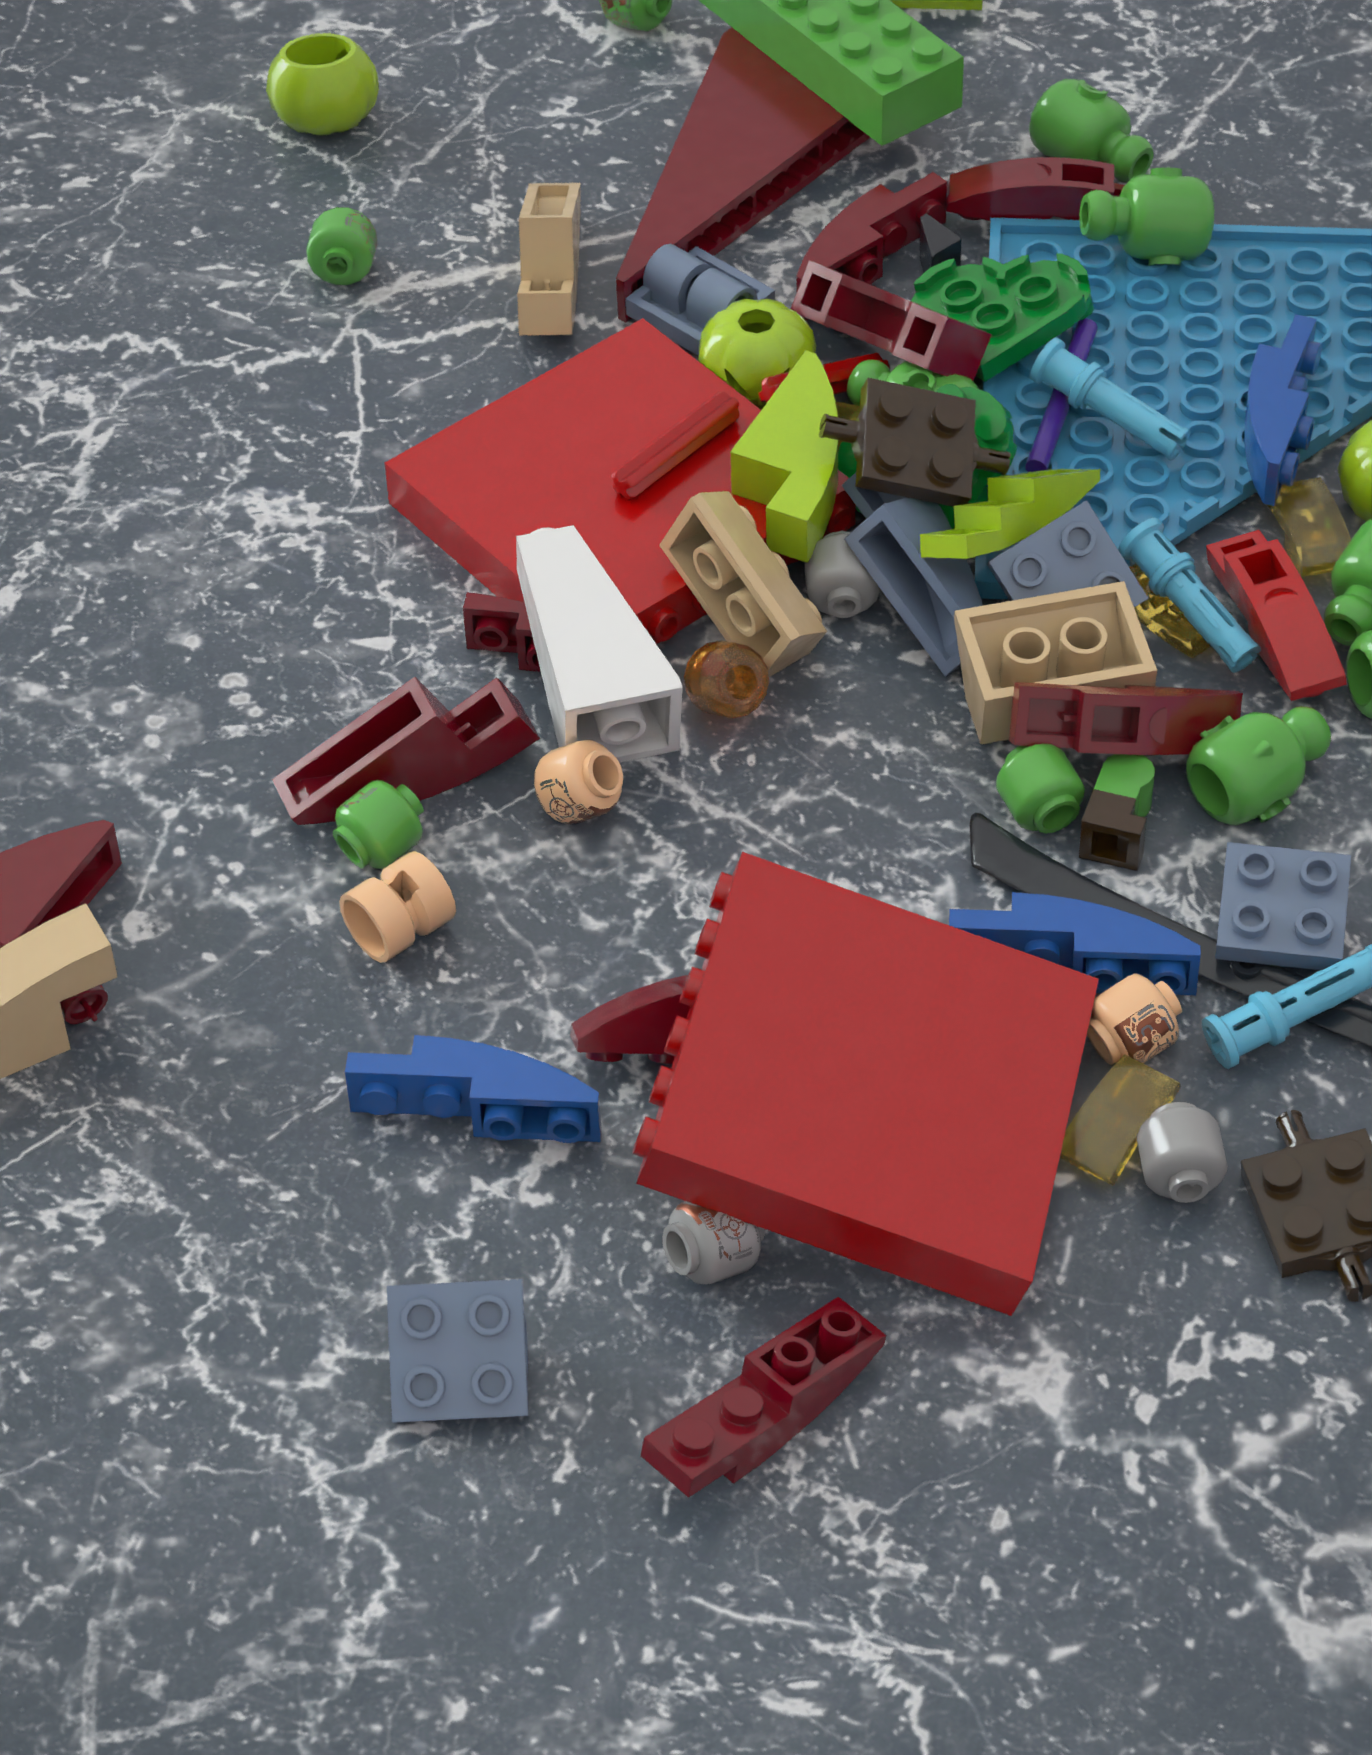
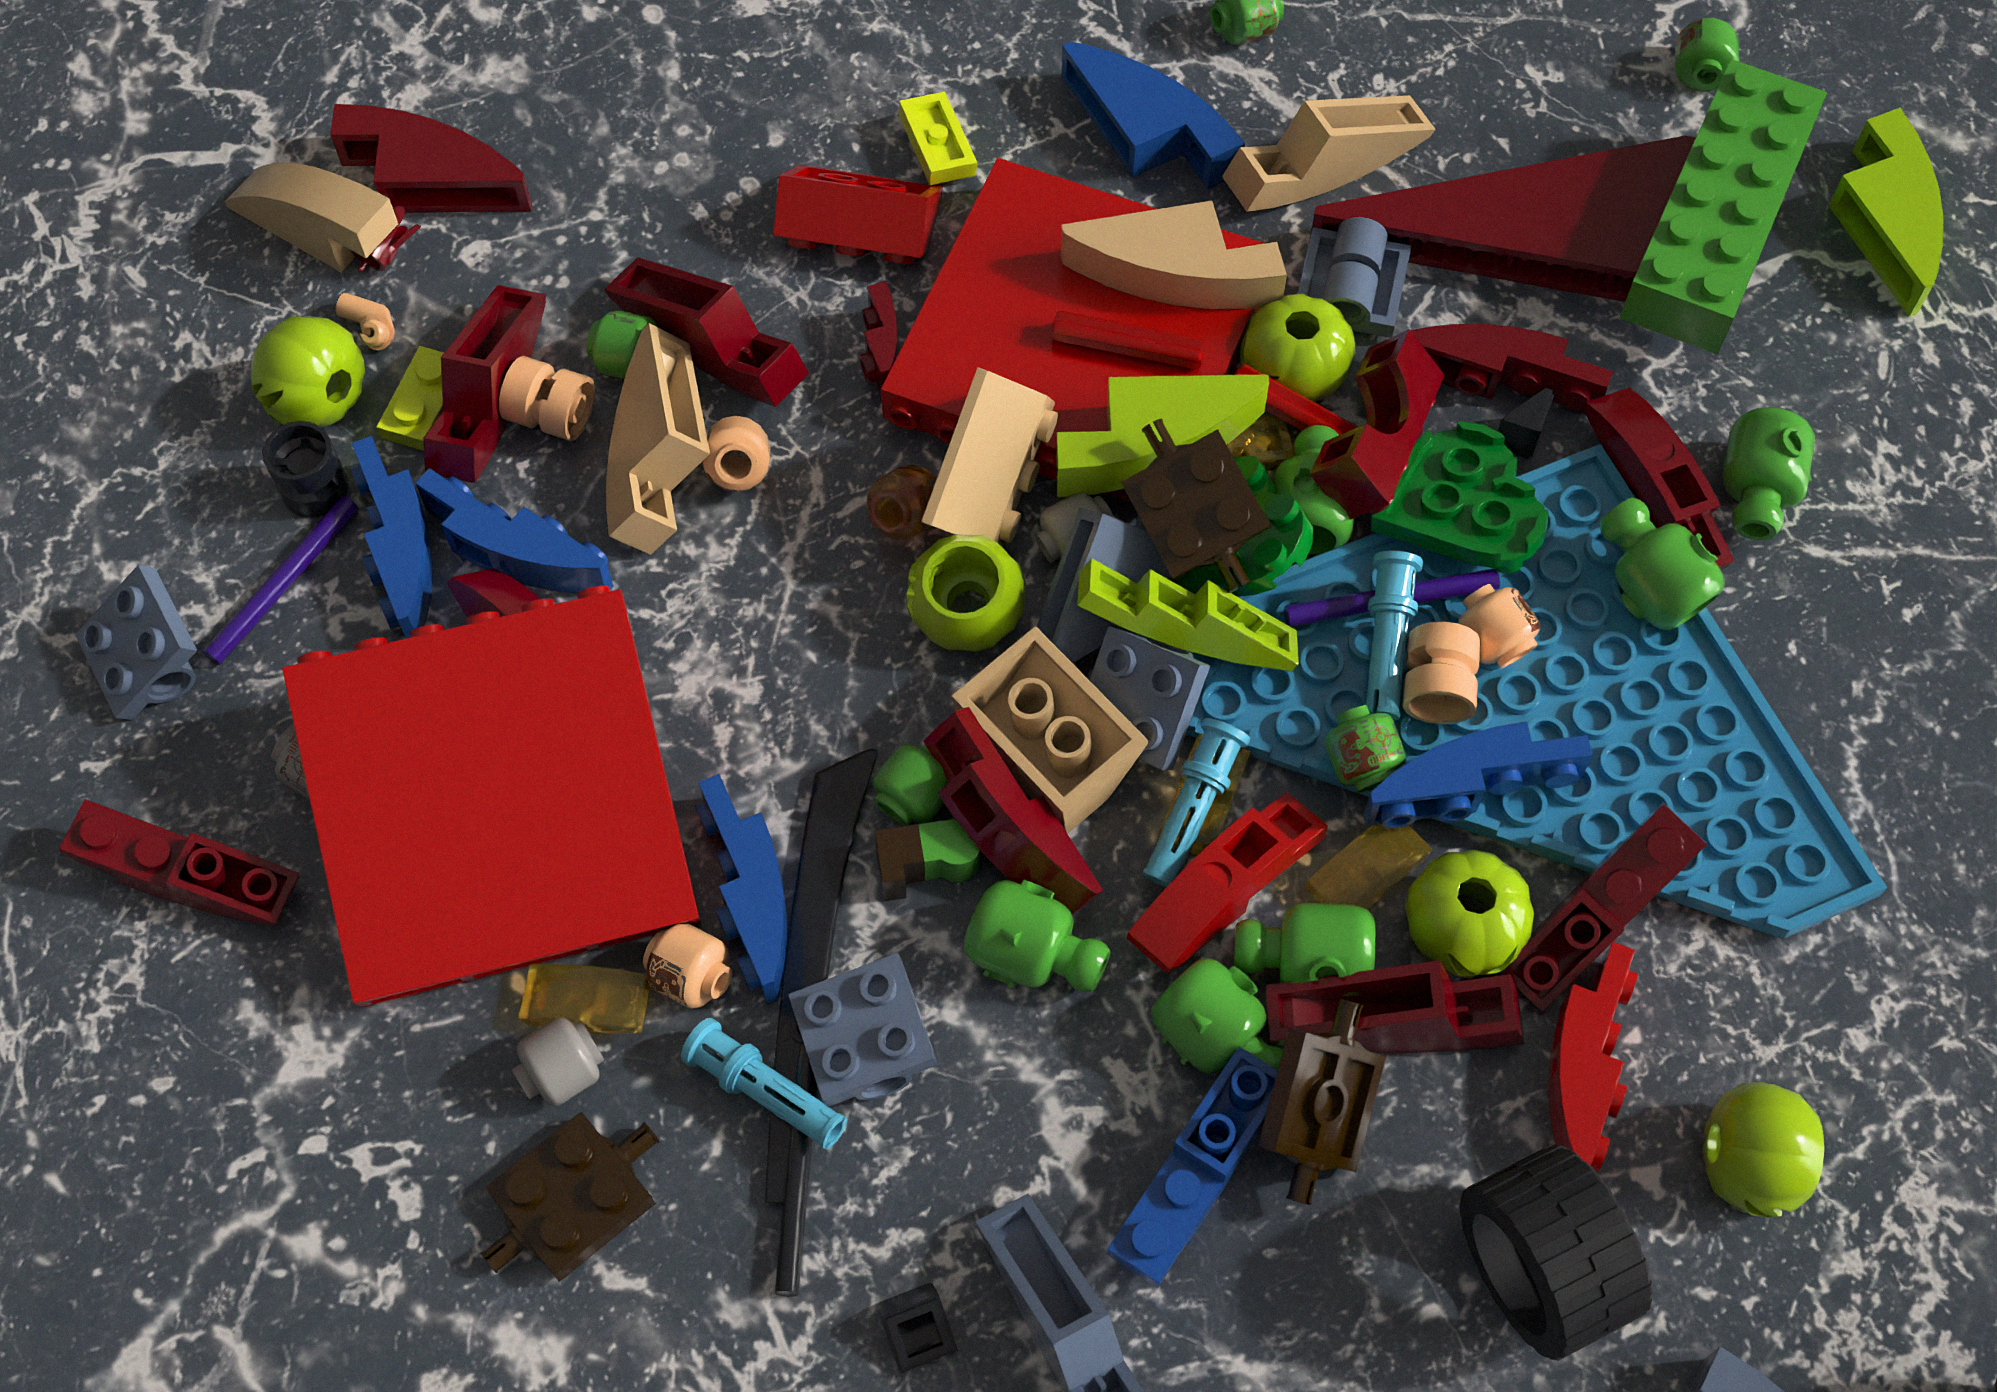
camera: 60 degrees right, 15 degrees up
(167, 1030) = (373, 319): none -> light nougat arm
(222, 1082) = (307, 371): none -> lime piece
(302, 1023) = (415, 402): none -> neon yellow plate
(306, 511) = (937, 138): none -> neon yellow plate
(338, 1133) = (305, 468): none -> black wheel
(339, 949) = (473, 378): none -> dark red slope
(352, 597) = (856, 212): none -> red slope
(402, 357) = (1148, 114): none -> blue slope
(437, 1202) = (280, 580): none -> dark purple bar
(521, 831) = (653, 440): none -> tan slope
(564, 987) = (525, 547): none -> blue slope
(594, 653) = (842, 387): white slope -> none
(617, 374) = (1174, 259): none -> tan slope
(863, 668) = (962, 565): none -> lime piece
(1143, 335) = (1502, 623): none -> light nougat head
(1172, 384) = (1441, 673): none -> light nougat wheel
(1212, 461) = (1364, 748): none -> bright green head

